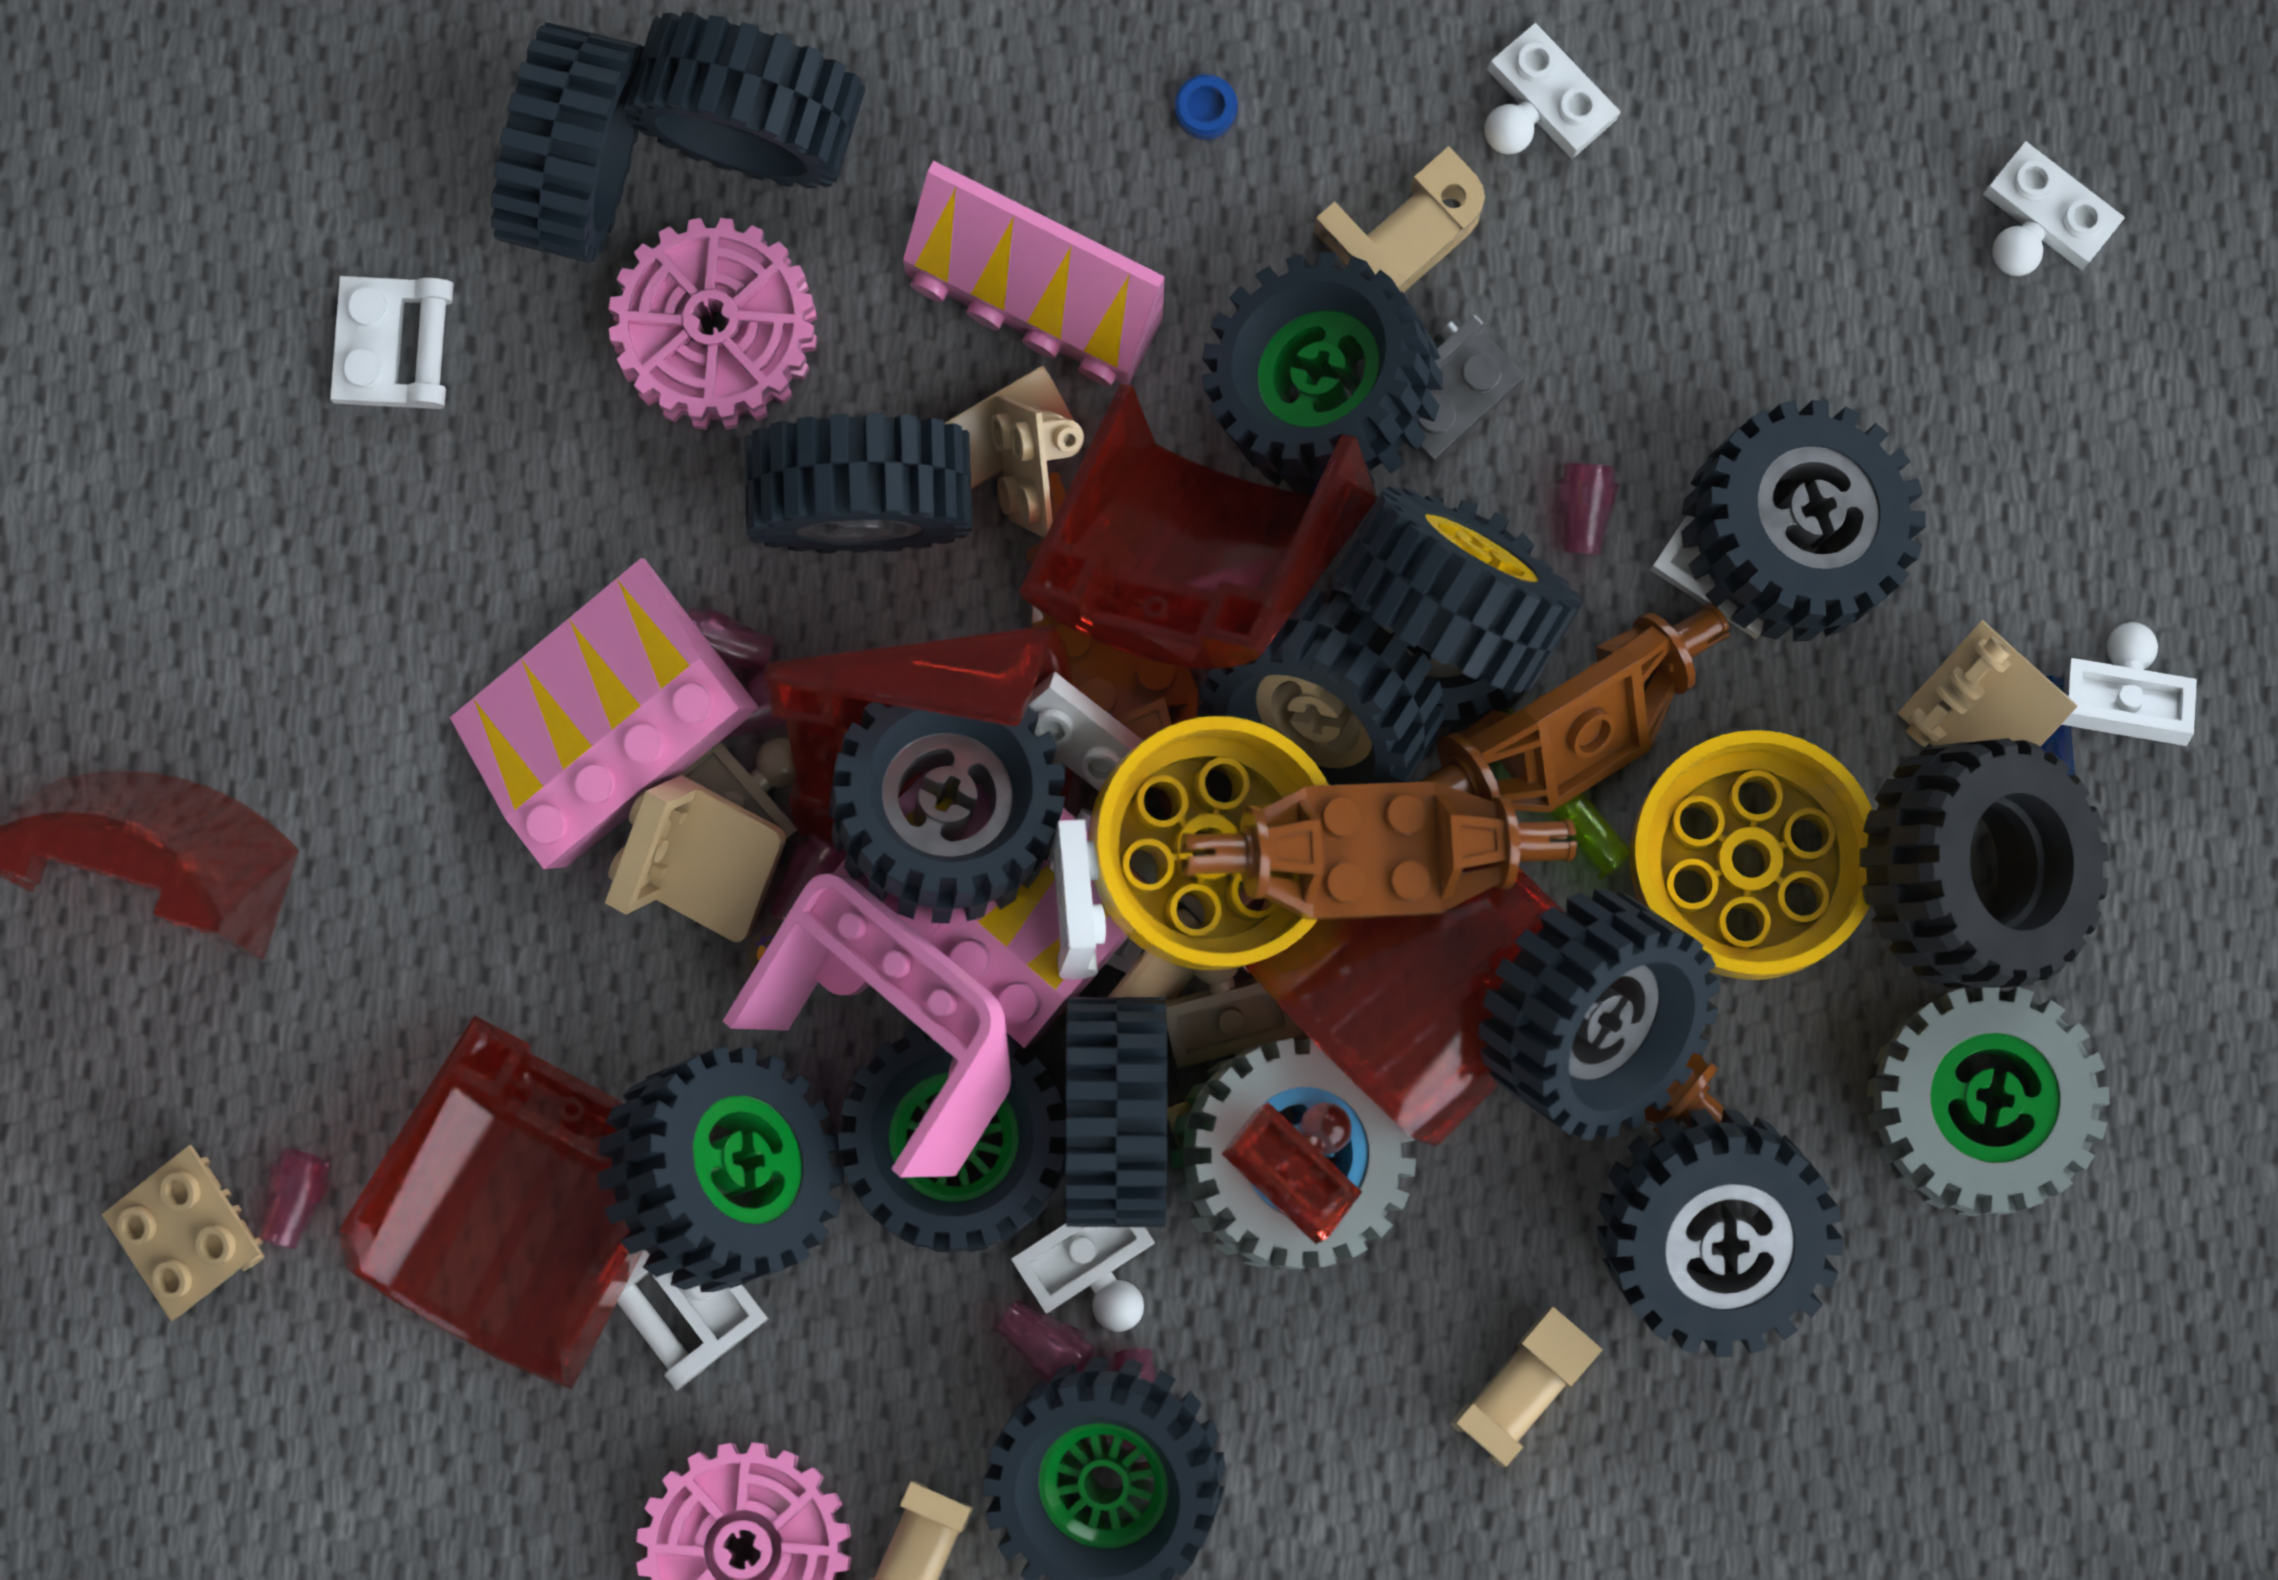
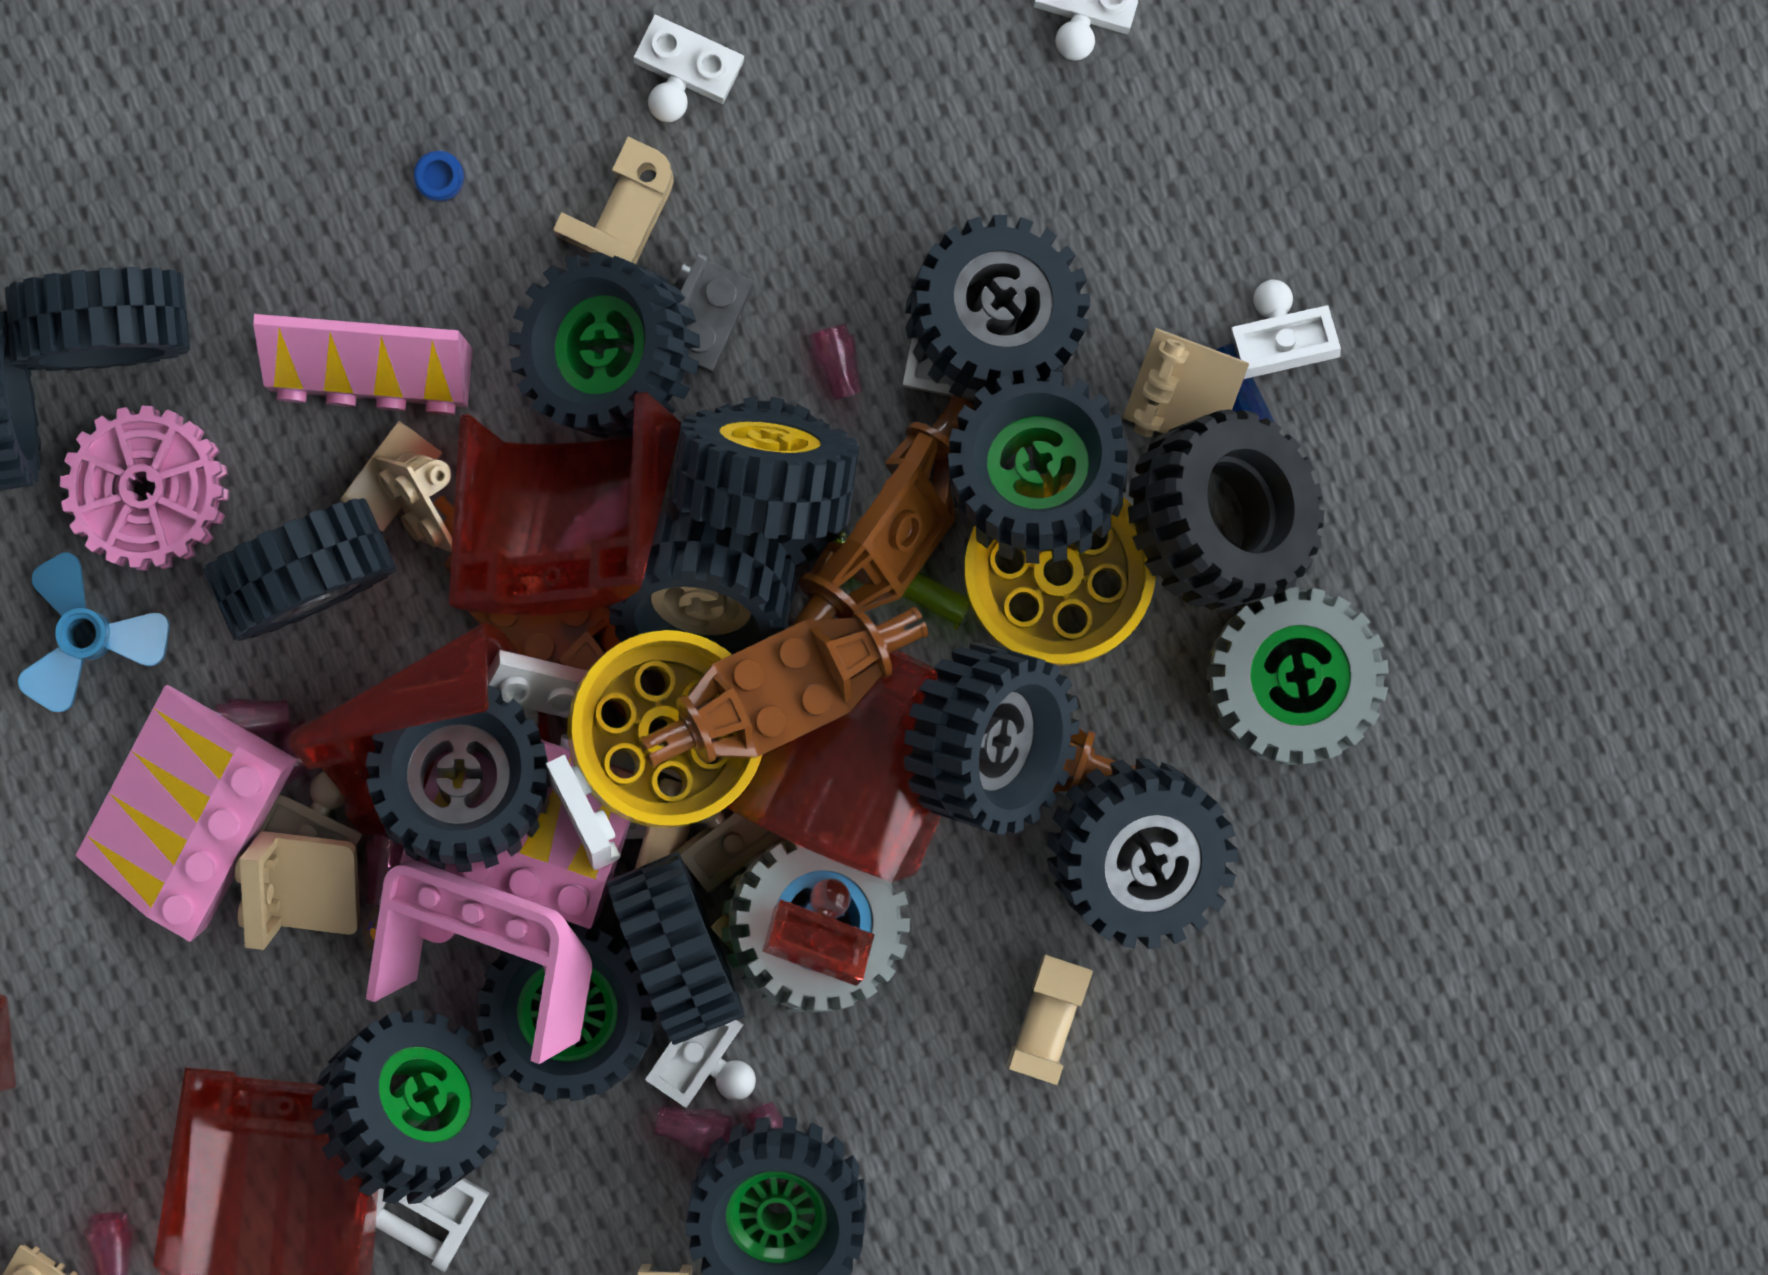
camera: 25 degrees left, 5 degrees up
(518, 497) = (56, 676): none -> dark azure piece
(1830, 698) = (1066, 438): none -> black wheel

